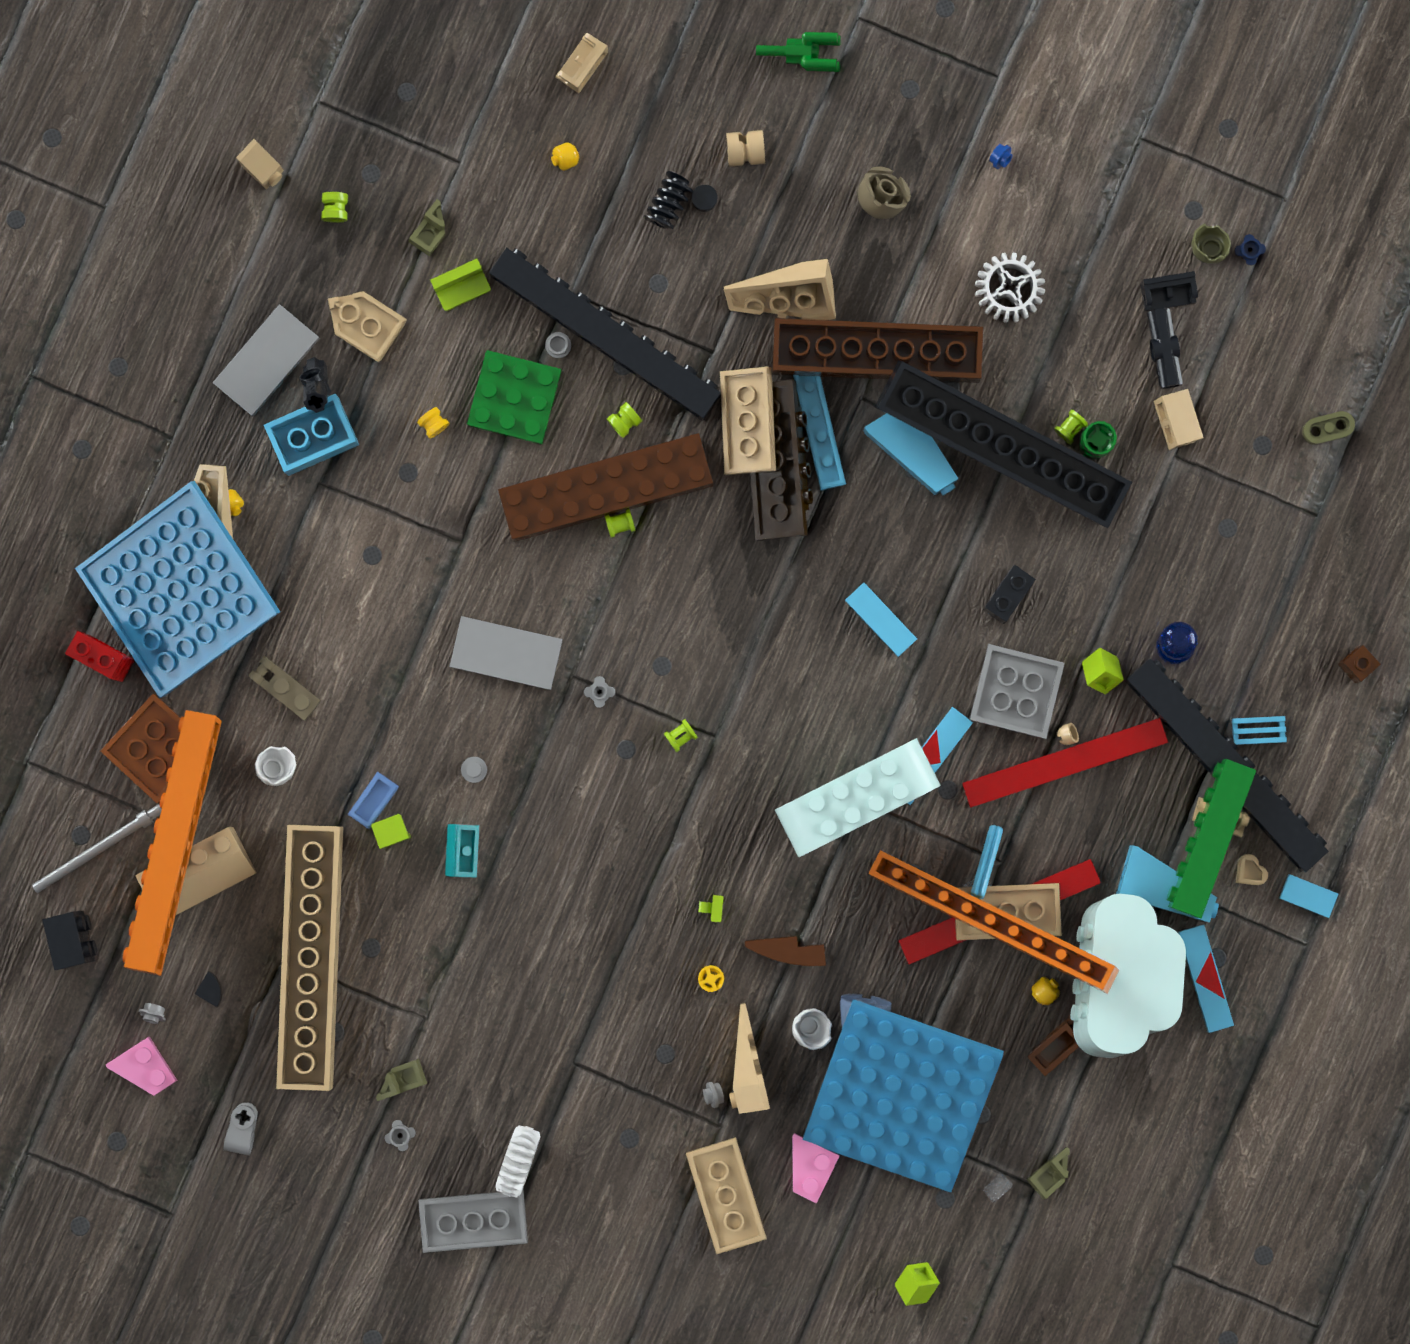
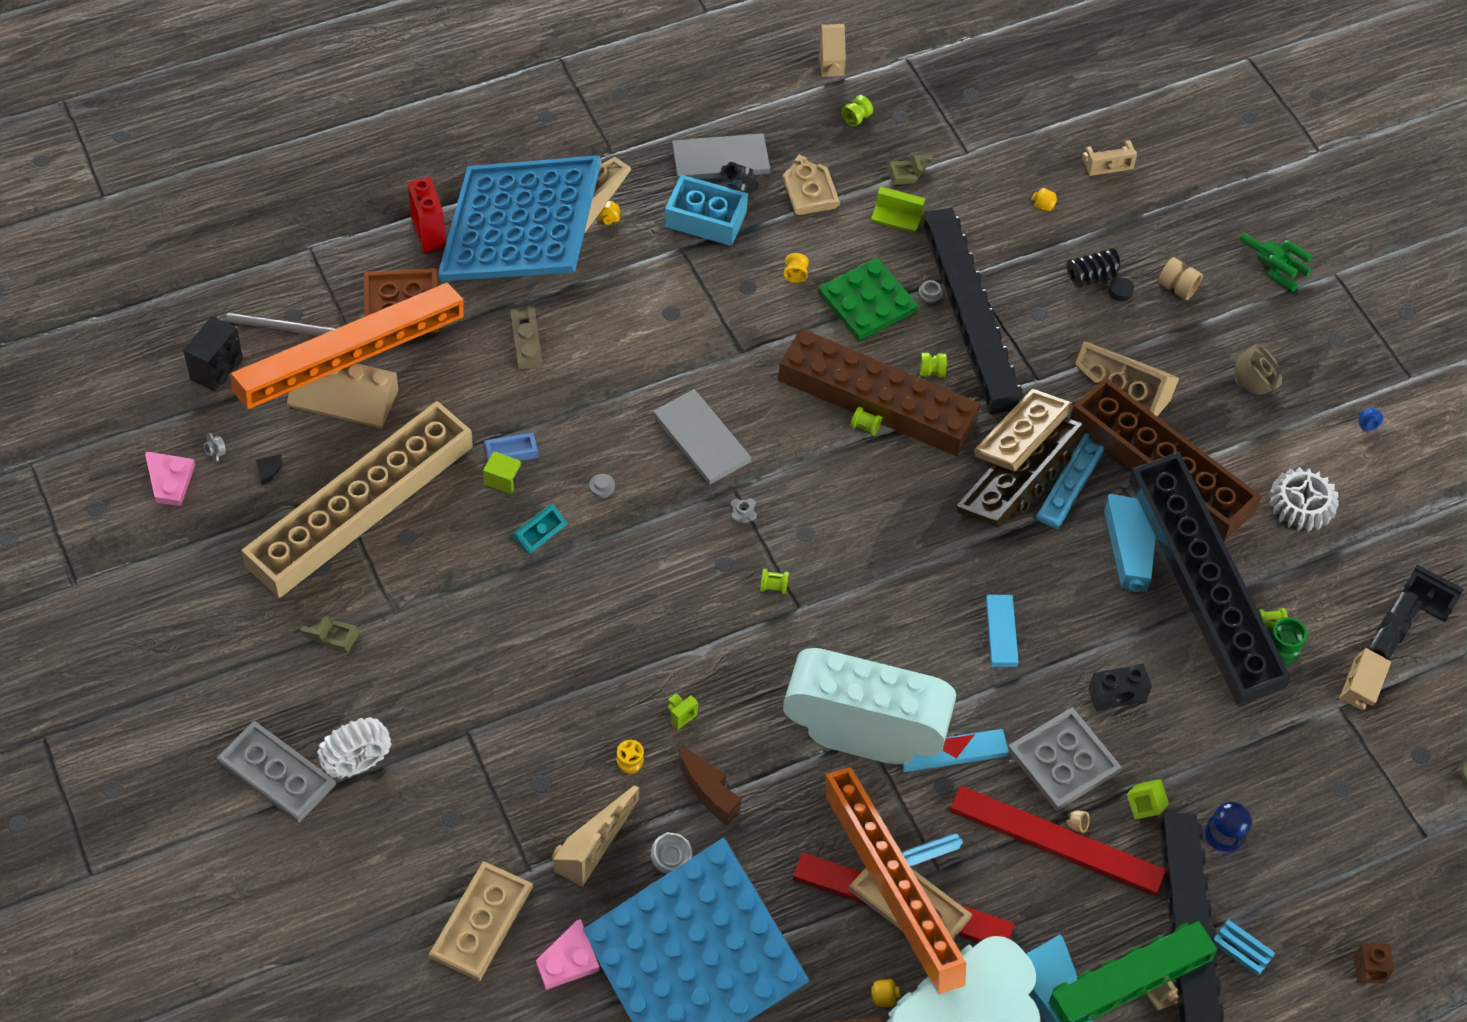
camera: 35 degrees right, 30 degrees down
(241, 1133) = (186, 567): light grey piece -> none
(275, 765) = (468, 371): white hair -> none
(392, 1137) = (289, 661): light grey plate -> none
(713, 1094) = (547, 836): light grey plate -> none

